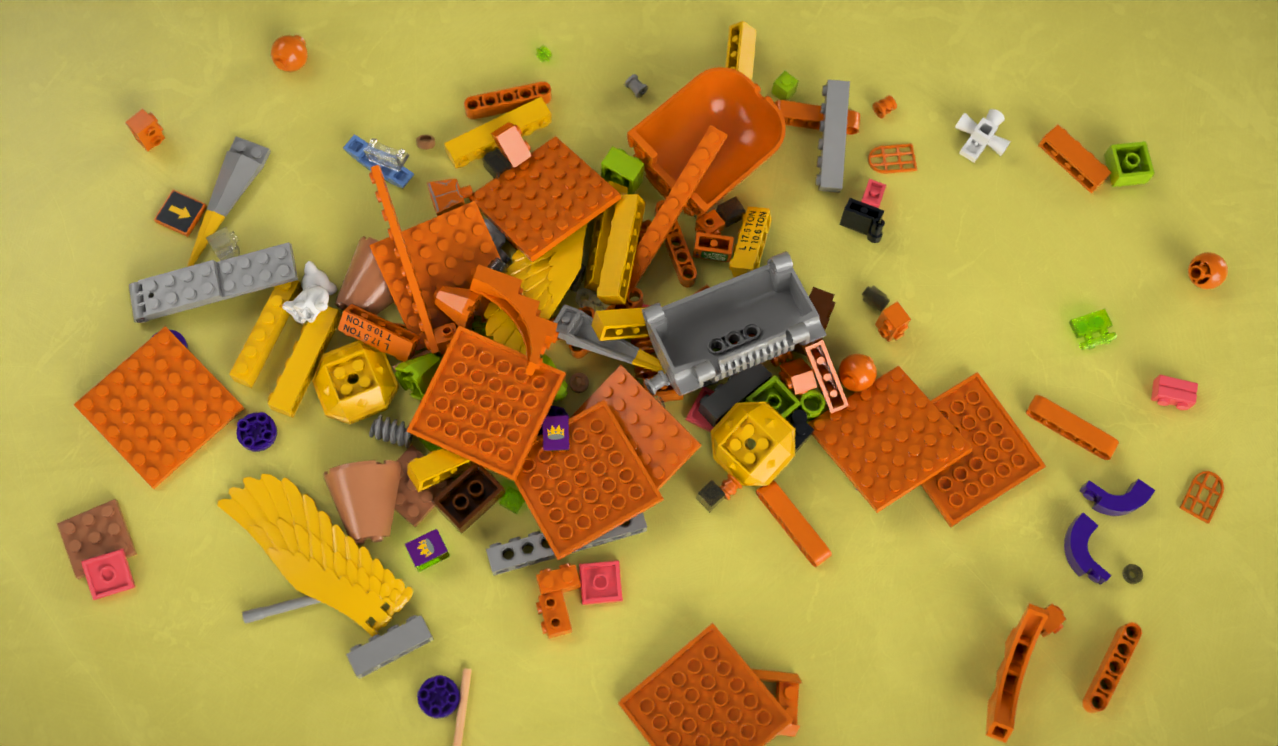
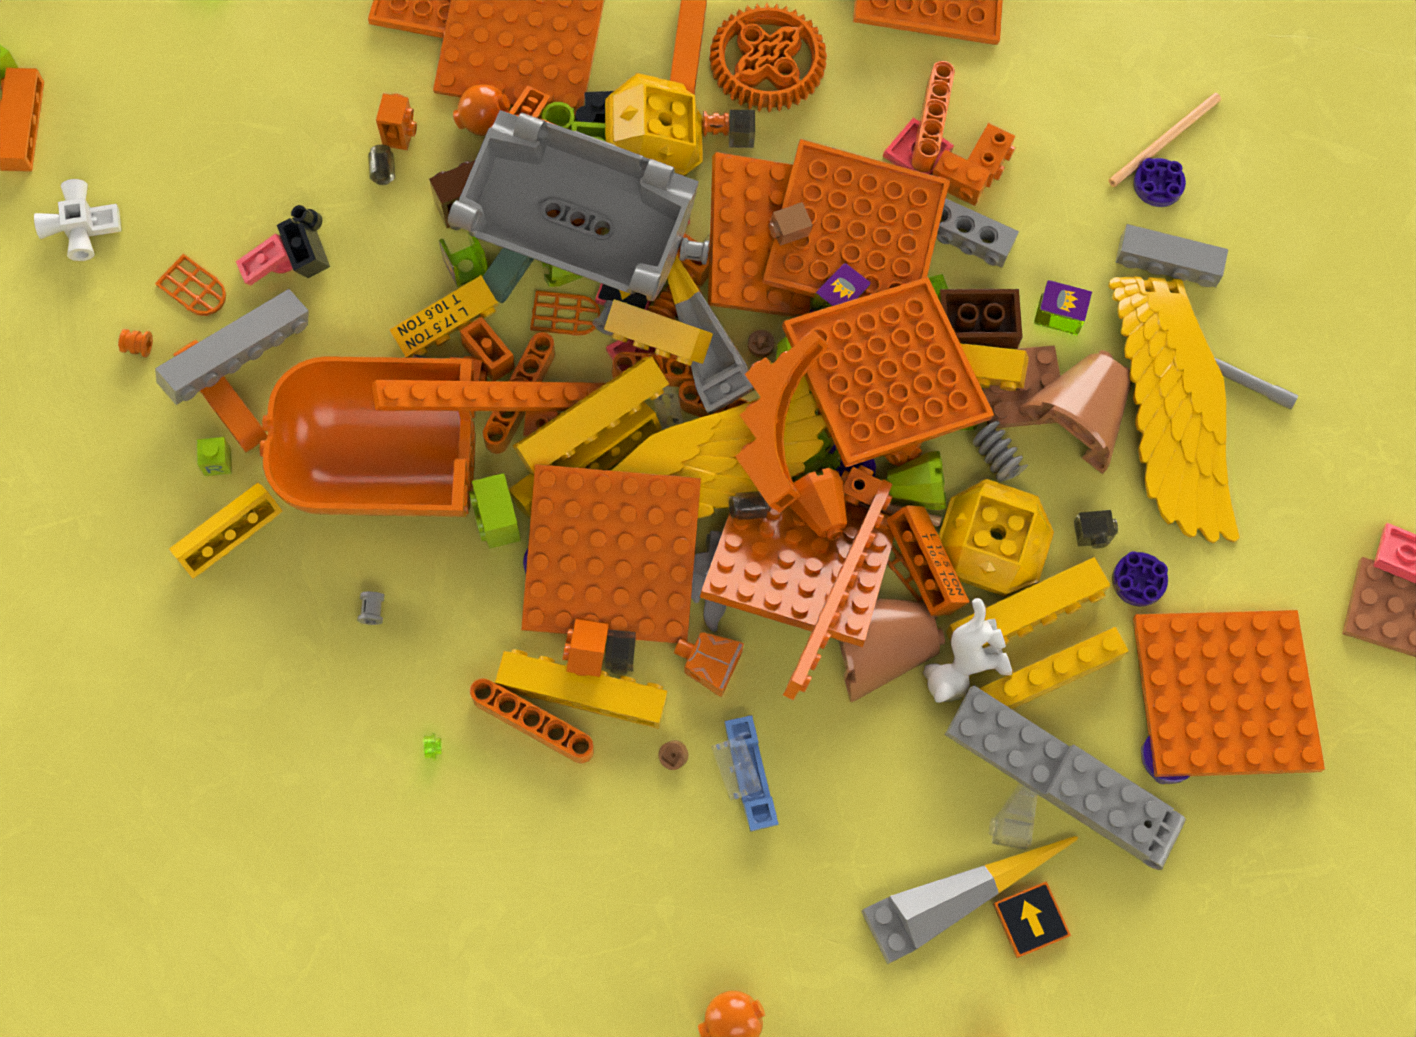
camera: 135 degrees left, 0 degrees up
(302, 435) = (1095, 528): none -> clear smoke brick
(617, 436) = (790, 224): none -> medium nougat brick
(617, 611) = (933, 116): none -> orange beam
(779, 562) = (768, 57): none -> orange gear

